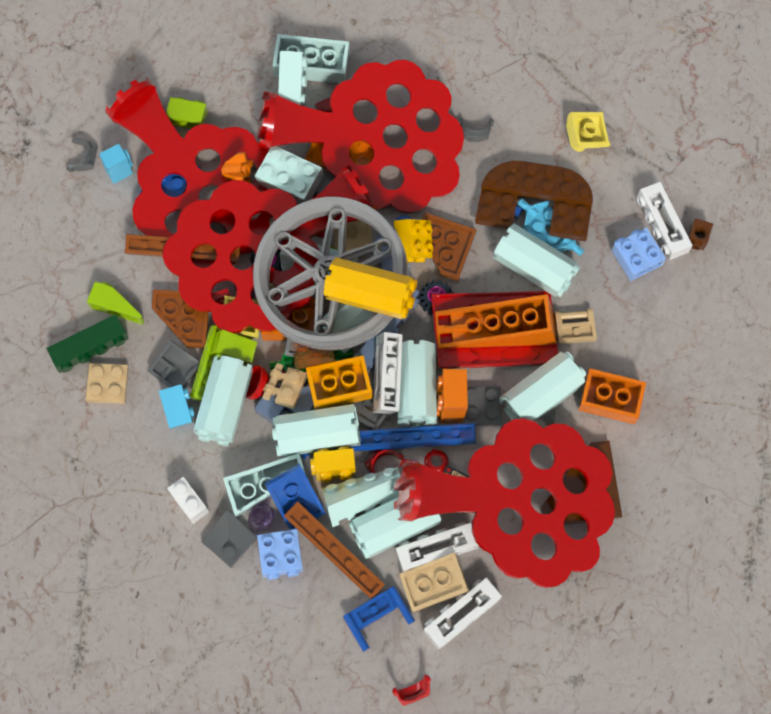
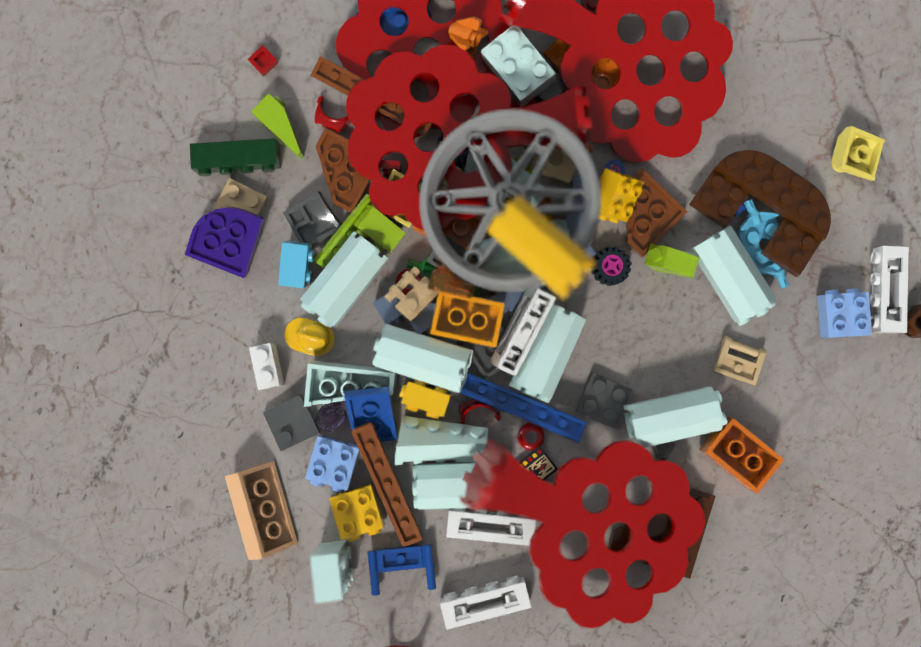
camera: 25 degrees right, 15 degrees up
(78, 260) = (263, 60): none -> red plate
(108, 412) = (226, 239): none -> dark purple plate
(157, 284) = (330, 123): none -> red helmet
(213, 463) = (309, 336): none -> yellow piece
(235, 623) = (261, 510): none -> light nougat slope
(257, 382) = (388, 276): red piece -> none
(318, 637) = (331, 571): none -> light aqua brick
(319, 586) = (357, 512): none -> yellow brick
(434, 582) = (471, 562): tan plate -> none
(452, 395) = (578, 384): orange brick -> none
(474, 135) = (736, 105): dark grey helmet -> none
(481, 271) = (671, 261): none -> lime slope
(494, 329) = (636, 325): piece -> none

